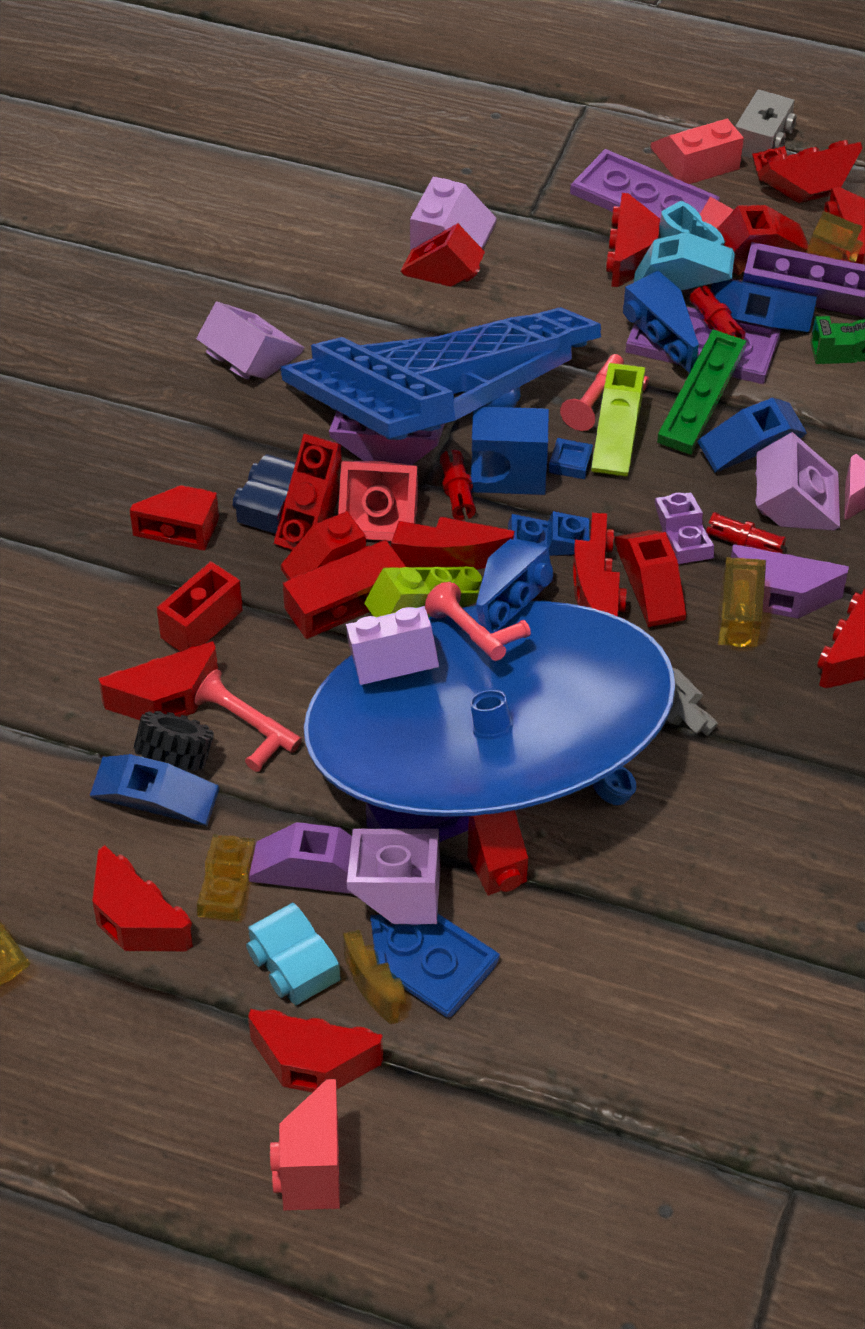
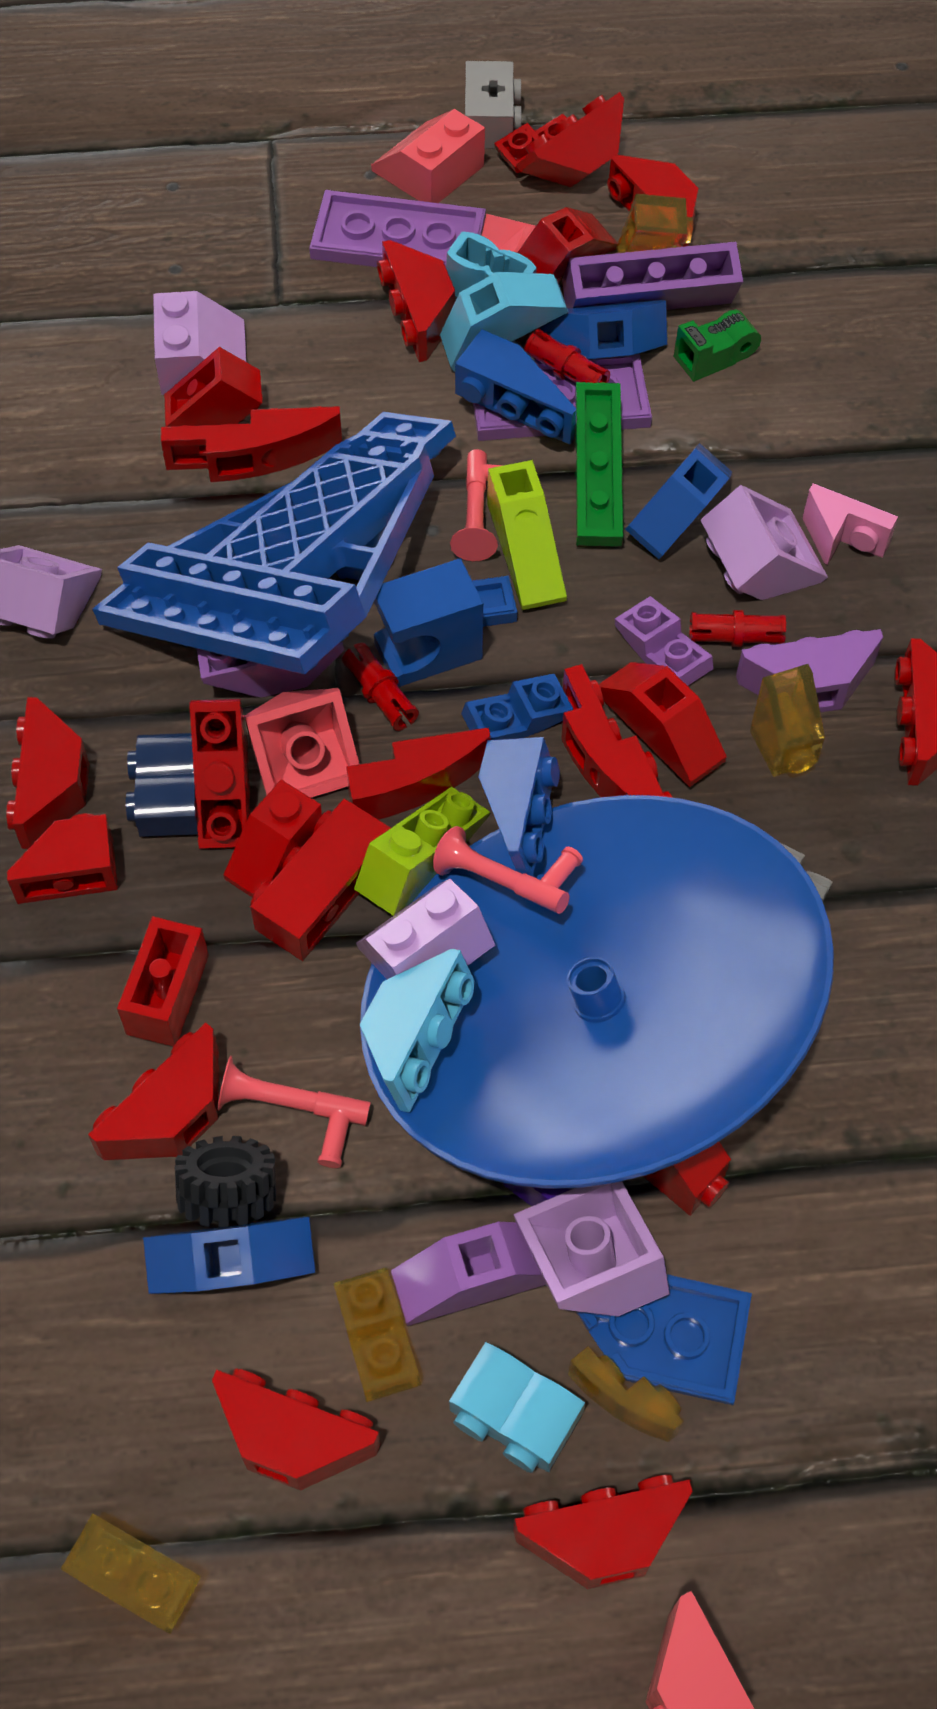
camera: 25 degrees left, 10 degrees up
(196, 458) = (48, 774): none -> red slope
(351, 686) = (415, 1020): none -> medium azure slope
(461, 303) = (267, 445): none -> red slope

